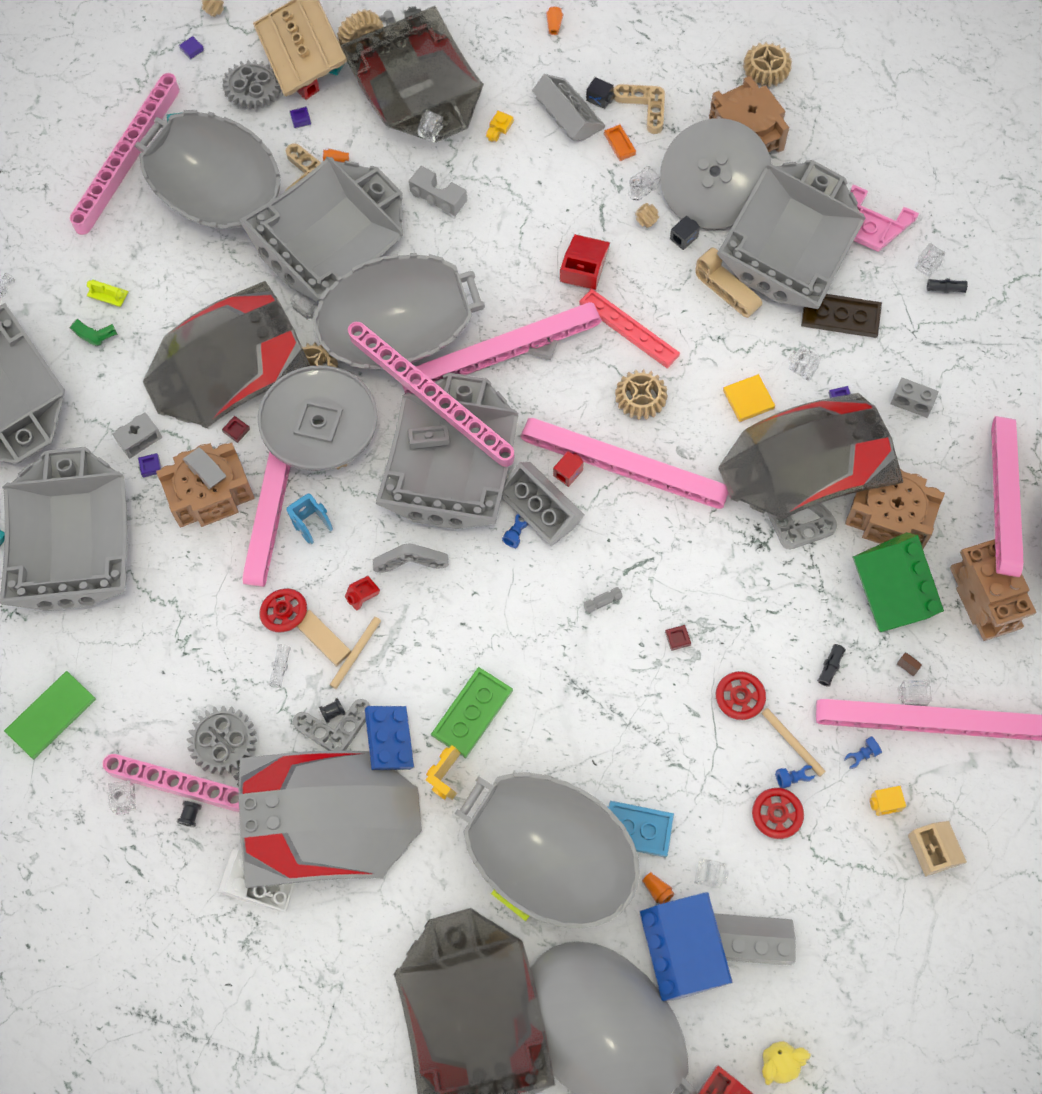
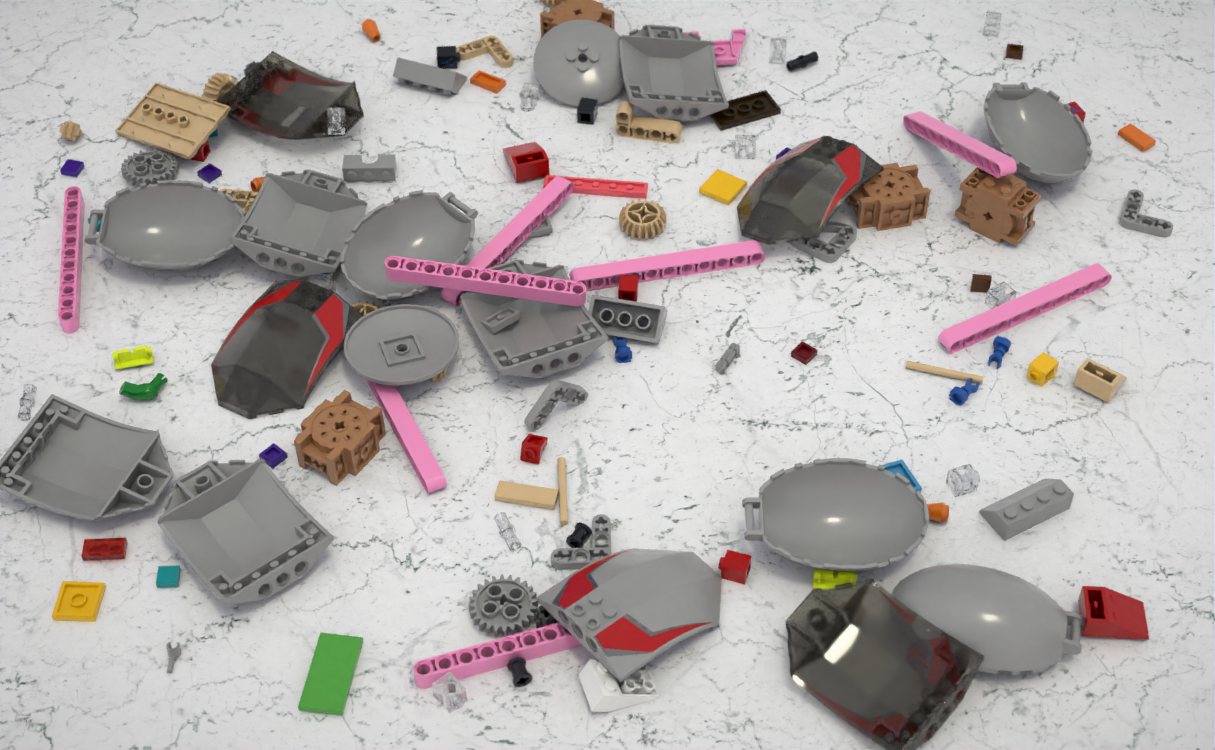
camera: 35 degrees left, 20 degrees down
(137, 435) = (245, 438): light grey brick -> none
(204, 467) = (332, 411): light grey slope -> none
(235, 429) = (328, 393): dark red tile -> none
(287, 624) = (478, 492): red plate -> none
(311, 507) = (446, 417): dark azure piece -> none
(389, 738) = (643, 527): blue plate -> none
(437, 772) = (712, 531): yellow bracket -> none
(438, 829) = (735, 566): none -> red brick
(472, 712) = (691, 480): bright green tile -> none
(499, 124) = (382, 110): yellow plate -> none
(647, 215) = (550, 112): tan gear -> none
(685, 947) = (991, 527): blue slope -> none
(745, 679) = (882, 363): red plate -> none
(783, 1066) = (1122, 565): light yellow hair -> none
(786, 797) = (974, 419): red plate -> none
(831, 665) = (928, 312): black pin -> none
(898, 582) = (932, 233): green slope -> none
(914, 397) = (841, 128): light grey brick -> none

